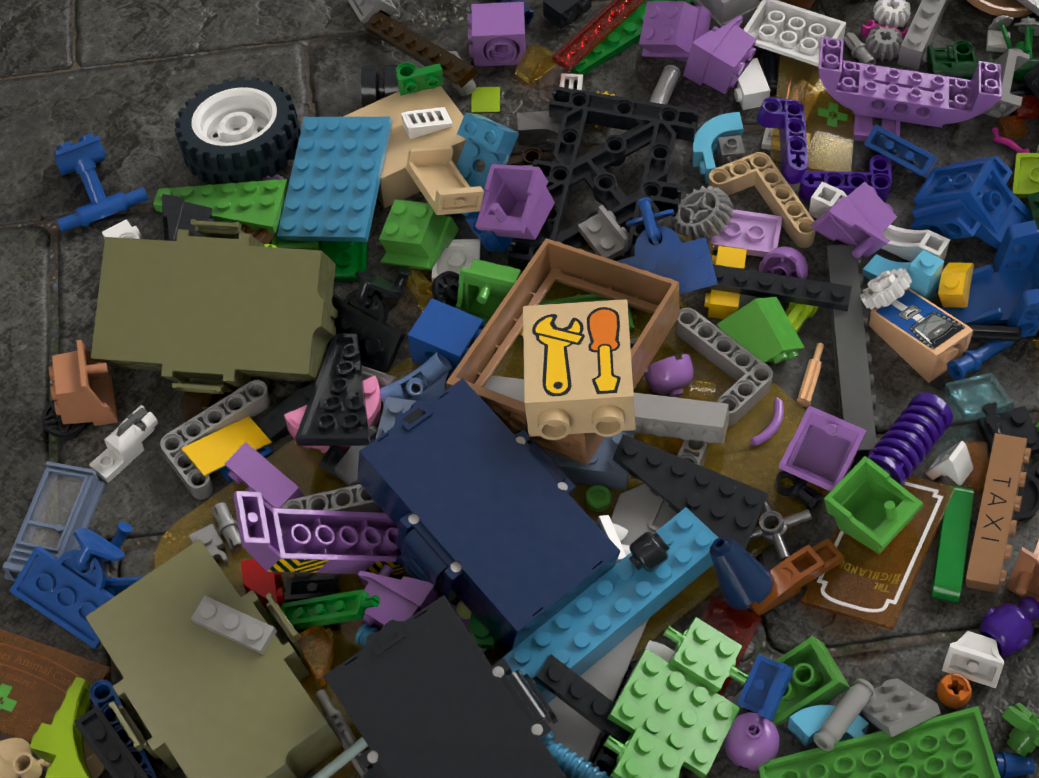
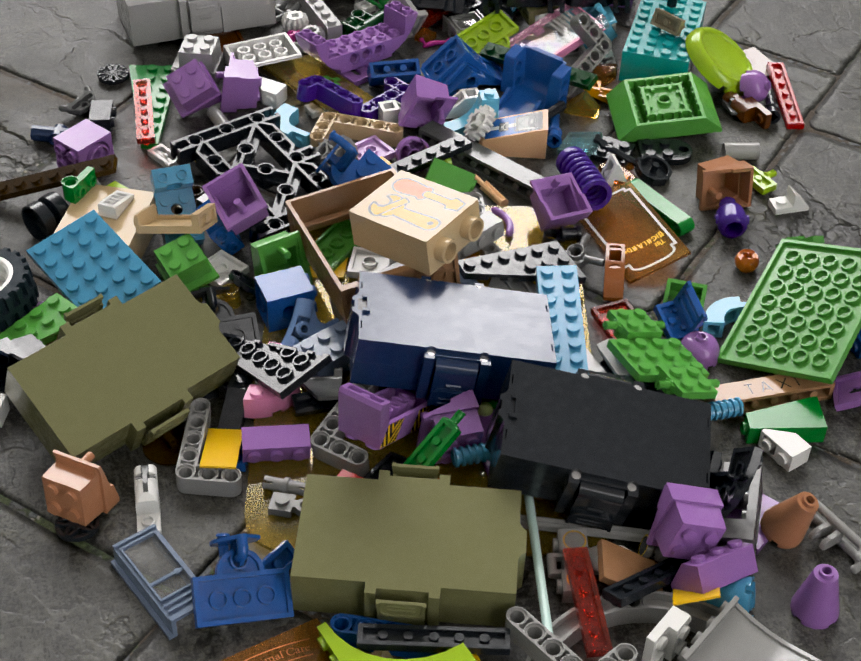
camera: 55 degrees left, 15 degrees down
(233, 625) = (396, 493): light grey plate -> none
(534, 63) = (125, 153): clear yellow slope -> none
(605, 234) = (302, 184): light grey bracket -> none
(648, 551) = (556, 289): black head -> none
(729, 149) = (305, 121): flat silver brick -> none
(739, 574) = (599, 280): dark blue cone -> none
(844, 714) = (728, 297): light grey axle -> none
(871, 505) = (615, 207): bright green piece -> none
(898, 707) = (741, 278): light grey plate -> none
(955, 285) = (507, 105): yellow slope -> none
(975, 659) = (738, 238): white slope -> none
(997, 512) = (661, 175): medium nougat brick -> none

